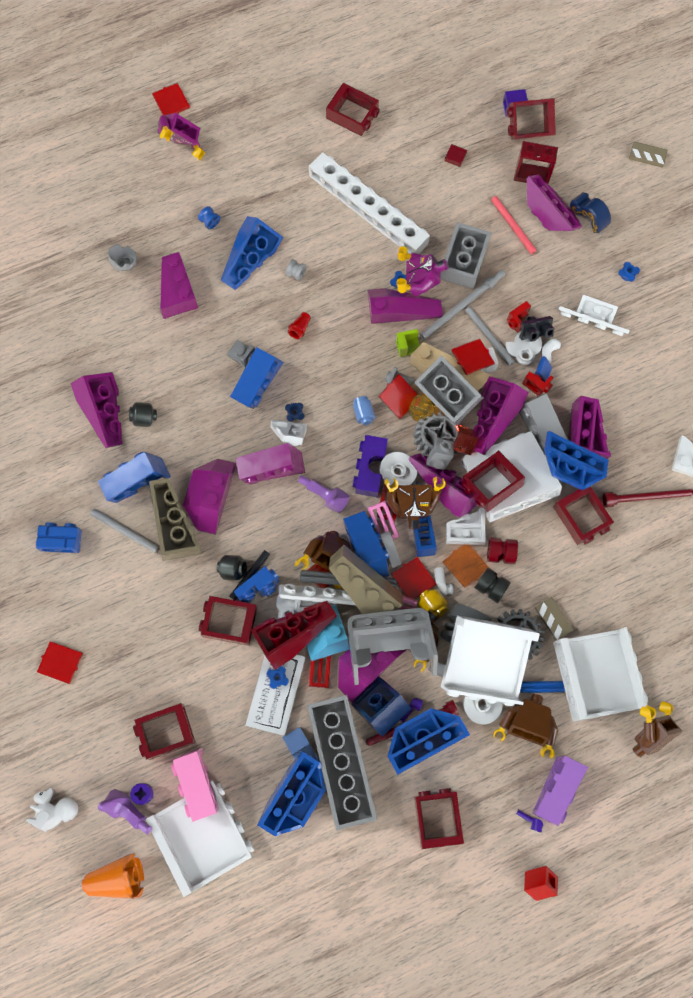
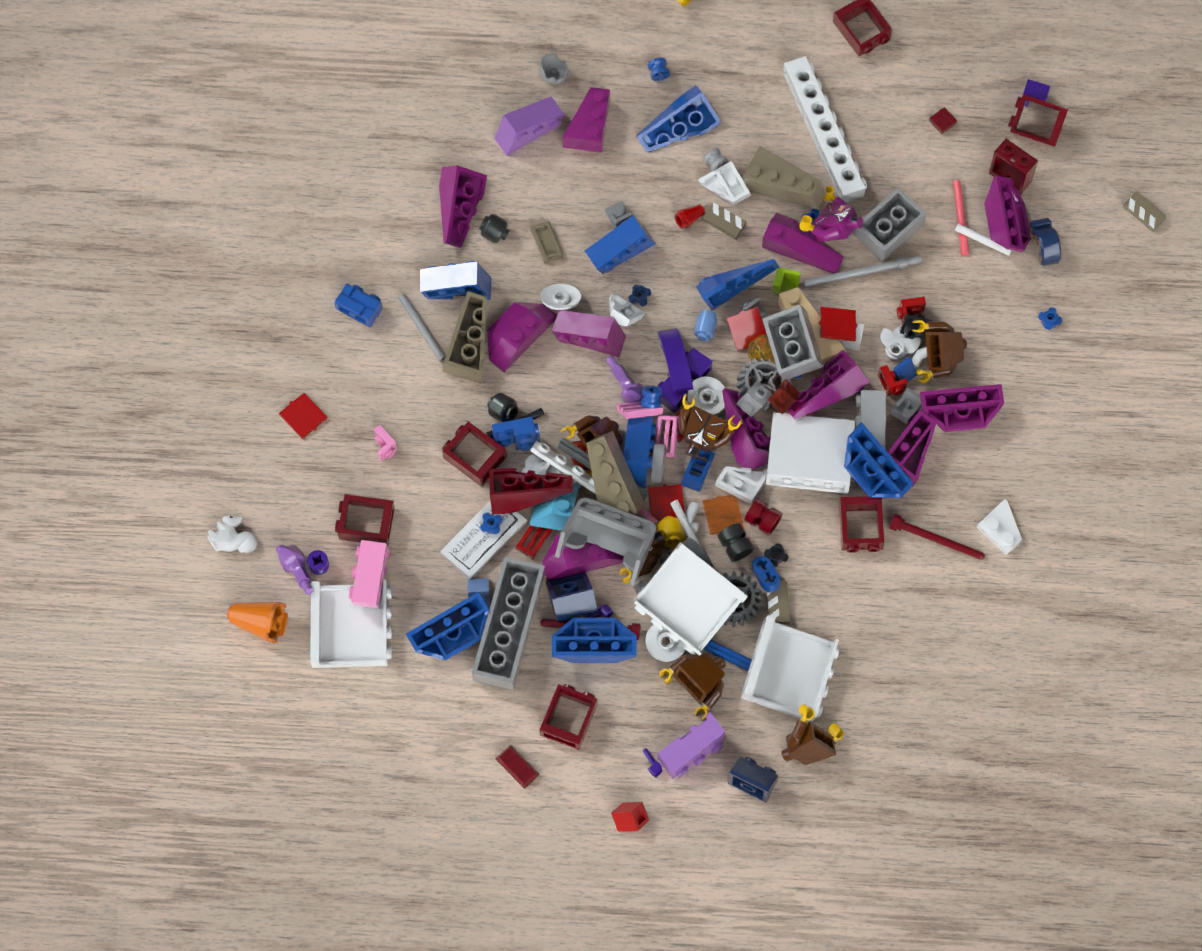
camera: 30 degrees right, 5 degrees down
(124, 313) = (528, 124): none -> medium lavender wedge
(143, 649) = (384, 439): none -> bright pink bracket
(192, 404) = (546, 242): none -> dark tan tile
(230, 445) = (560, 296): none -> white dish
(315, 285) = (726, 183): none -> white wing
(329, 316) = (724, 220): none -> dark tan tile
(350, 510) = (635, 410): none -> bright pink tile
(355, 495) = (651, 397): none -> blue wheel
(357, 452) = (676, 360): none -> dark purple slope
(362, 259) = (782, 180): none -> dark tan wedge
(362, 369) = (726, 285): none -> blue wedge
(417, 888) = (517, 766): none -> dark red tile
(446, 594) = (684, 521): none -> white bar
(489, 335) = (872, 314): light grey bar -> none
(505, 467) = (783, 430): dark red window -> none
(530, 601) = (762, 575): none -> blue beam
(535, 576) = (777, 549): none -> black plate
(542, 233) = (981, 238): none -> white bar
(562, 397) = (906, 406): none -> light grey bracket
(567, 338) = (943, 349): none -> reddish brown torso
(597, 312) = (990, 341): white bracket -> none
(610, 376) = (963, 407): none -> magenta wedge
(626, 789) = (753, 778): none -> dark blue slope

